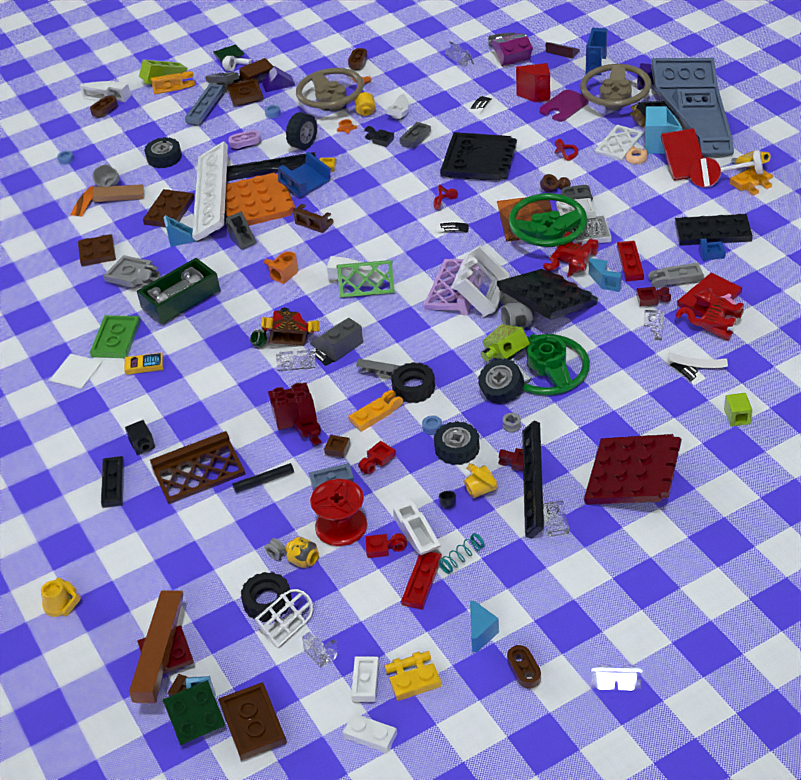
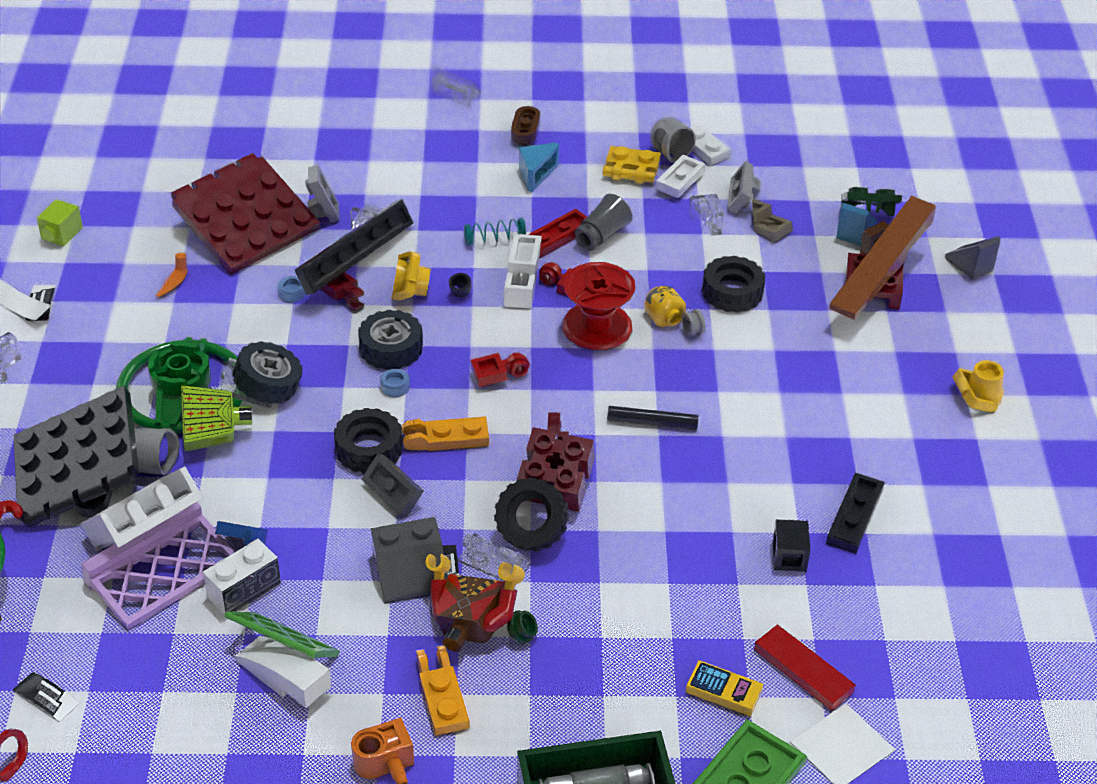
camera: 155 degrees left, 0 degrees up
(95, 714) = (975, 258): none -> dark grey slope
(108, 390) = (804, 667): none -> red tile
(191, 455) = (735, 483): reddish brown fence -> none
(252, 721) = (812, 191): reddish brown plate -> none
(272, 674) = (767, 224): none -> dark tan slope
(275, 300) = (442, 694): none -> light orange hinge
(277, 616) = (726, 251): white window -> none
(286, 375) = (511, 500): none -> black tyre
(311, 696) = (742, 188): none -> light grey hinge
(336, 472) = (570, 371): sand blue plate -> none
(337, 446) = (534, 405): reddish brown plate -> none
(388, 598) = (603, 222): none -> dark grey plant
(394, 707) = (672, 137): none -> light grey helmet
(409, 292) = (242, 577): none -> brick
(429, 309) = (245, 532): none -> blue tile
(515, 426) = (303, 343): light grey bush -> none
(552, 449) = (290, 289): none -> medium blue tile
(593, 502) = (325, 201): none -> light grey hinge
(629, 420) = (176, 277): none -> orange bar

